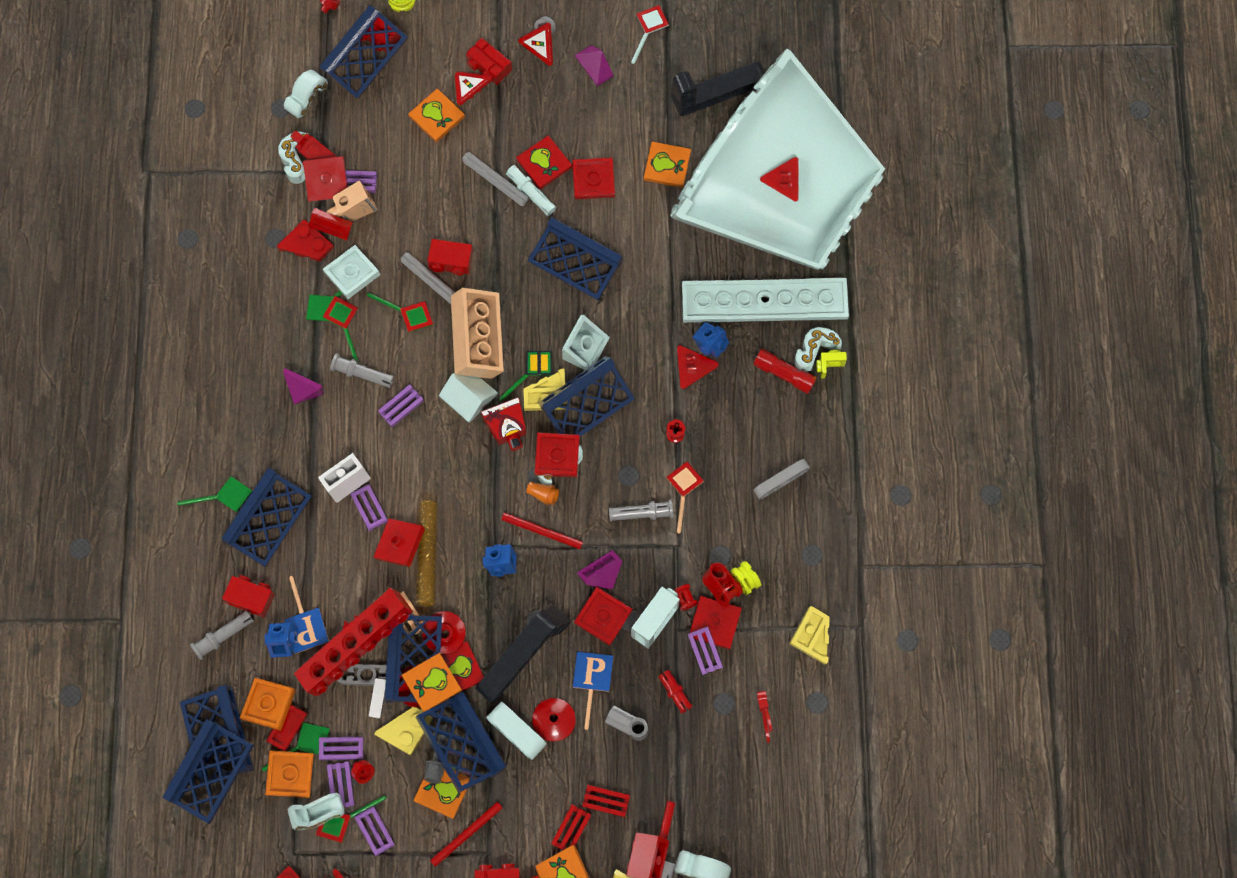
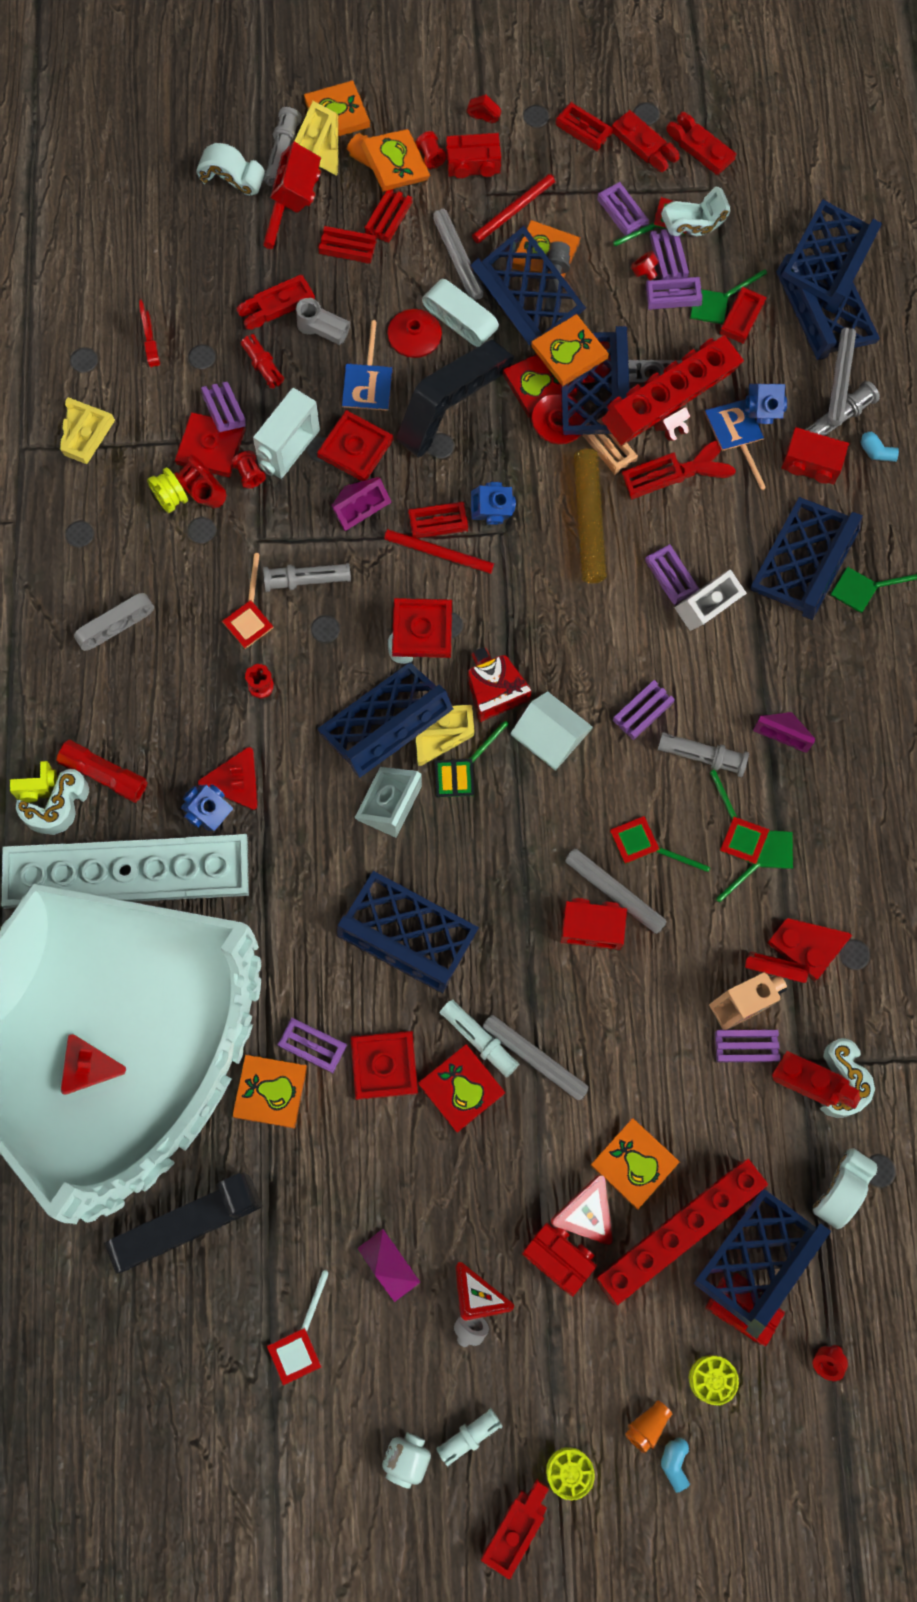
camera: 175 degrees right, 0 degrees up
(199, 604) = (876, 450): none -> medium azure arm
(217, 658) = (841, 377): none -> light grey axle
(267, 704) = (770, 336): orange tile -> none
(289, 774) = (732, 263): orange tile -> none
(325, 177) = (794, 1039): red plate -> none
(336, 596) = (704, 466): none -> red piece
(351, 272) = (736, 896): light aqua plate -> none
(358, 589) = (657, 484): none -> red tile
(377, 698) = (635, 347): white sticker -> none
(399, 542) = (627, 523): red plate -> none
(404, 731) = (603, 310): light yellow wing -> none
(411, 73) = (680, 1232): none -> red brick
(477, 333) = (545, 800): light nougat brick -> none
(516, 791) = (458, 254): none -> light grey axle
(545, 493) = (437, 590): orange cone -> none
(560, 561) = (439, 529): none -> red tile
(658, 193) = (306, 1056): none -> medium lavender tile
(662, 746) = (274, 302): none -> red hinge

